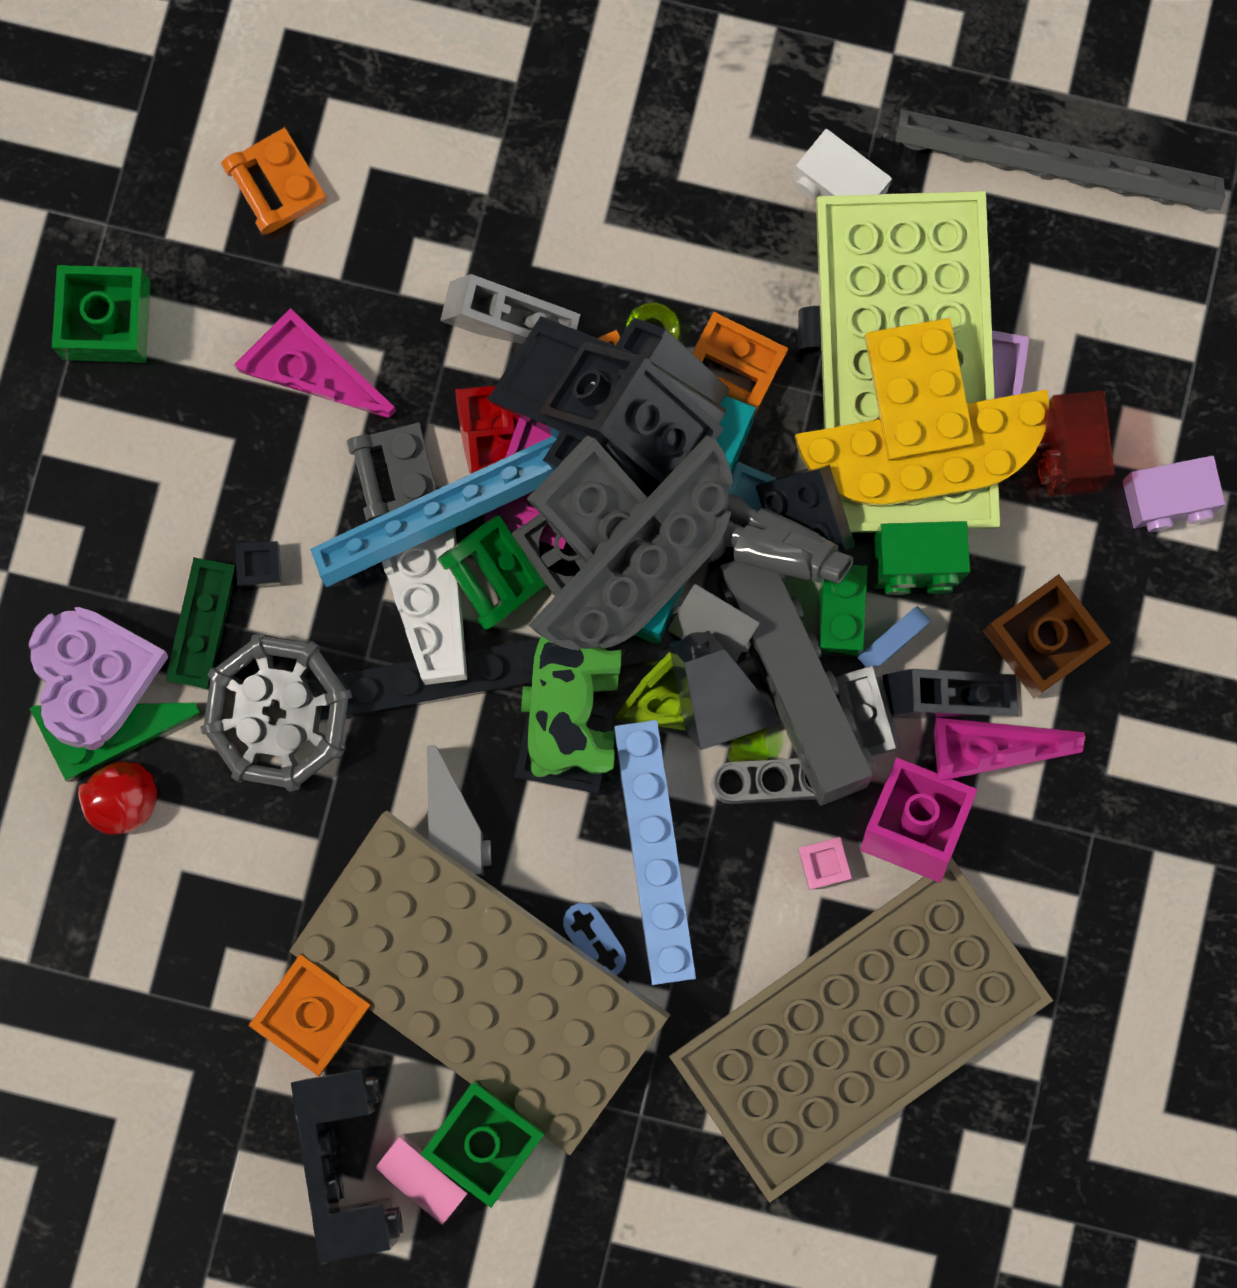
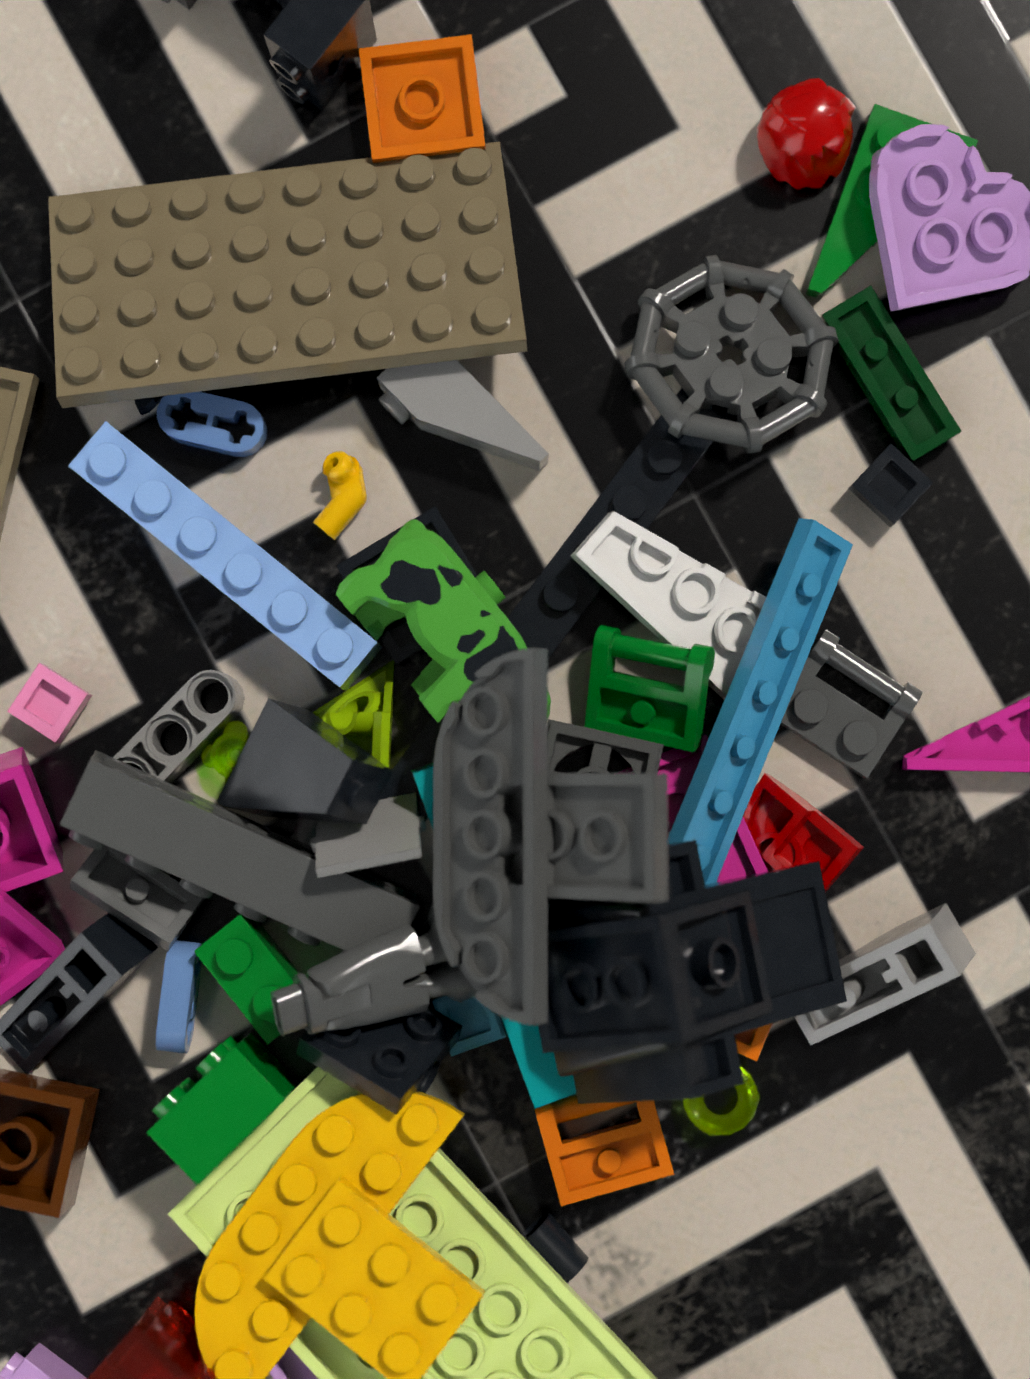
camera: 145 degrees right, 5 degrees up
(421, 1179) = (169, 50): bright pink brick -> none
(482, 1143) = (136, 124): green brick -> none
(555, 832) = (346, 491): none -> yellow arm

